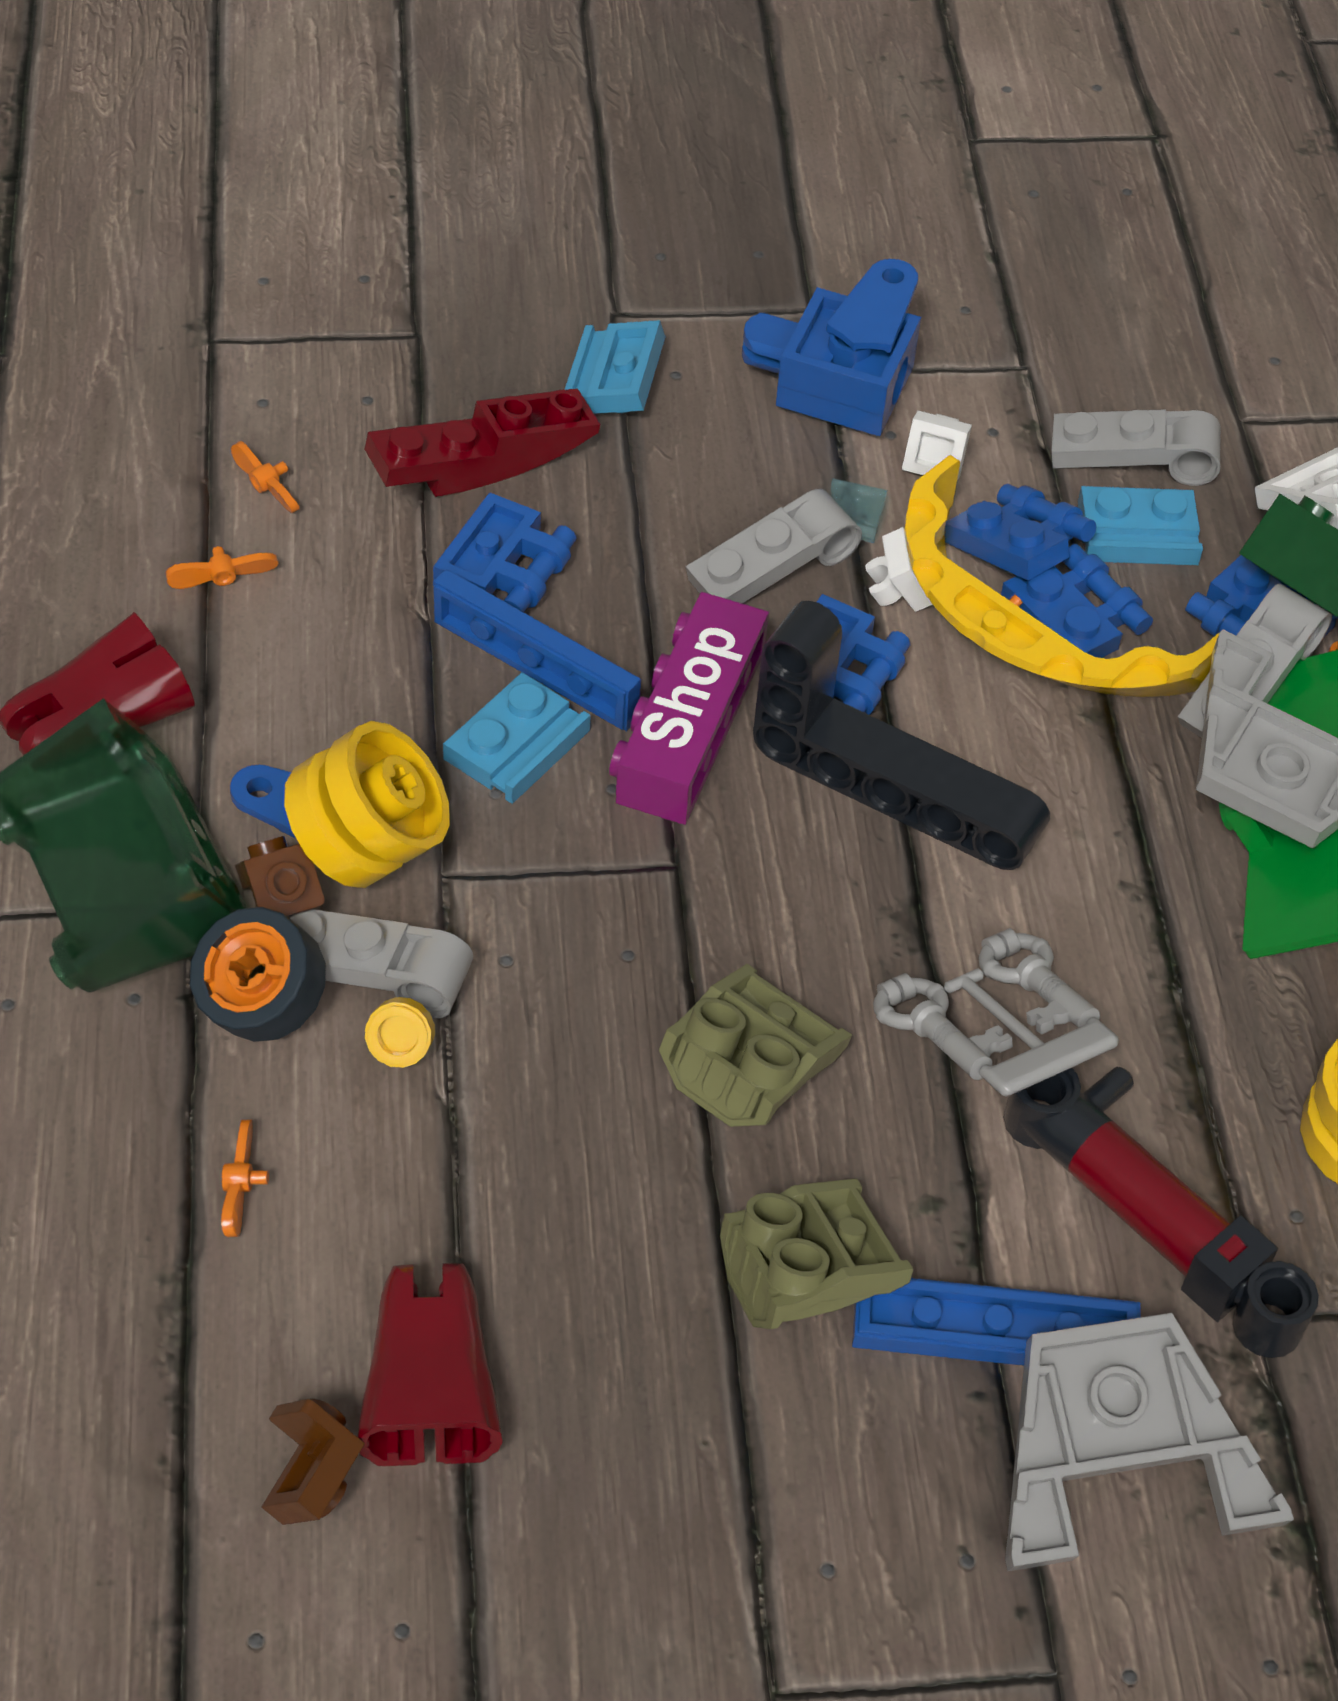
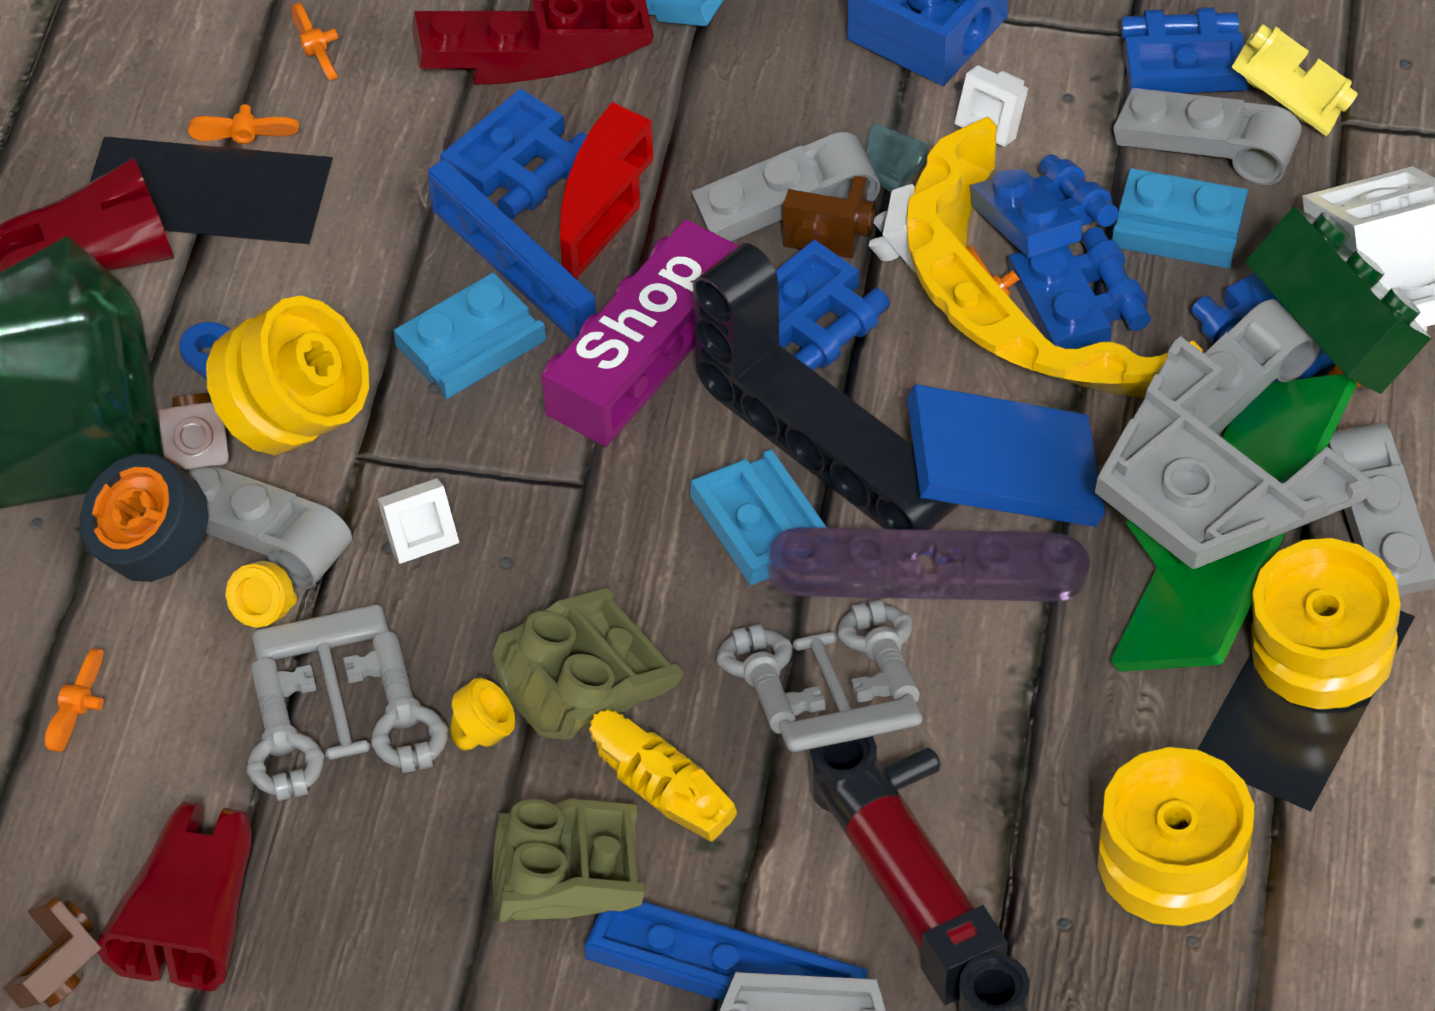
camera: 20 degrees right, 0 degrees up
(222, 631) = (225, 188): none -> black piece
(536, 929) = (418, 520): none -> white tile
(547, 1077) = (385, 662): none -> light grey piece
(602, 570) = (603, 185): none -> red slope
(669, 1114) = (480, 715): none -> yellow tile
(826, 572) = (828, 219): none -> reddish brown bracket
(867, 868) = (750, 508): none -> dark azure plate
(869, 1143) = (662, 775): none -> yellow hinge
(1004, 893) = (867, 564): none -> clear purple piece
(1080, 770) = (1004, 455): none -> blue tile
(1087, 375) = (1183, 51): none -> blue plate
(1179, 373) = (1272, 65): none -> light yellow hinge

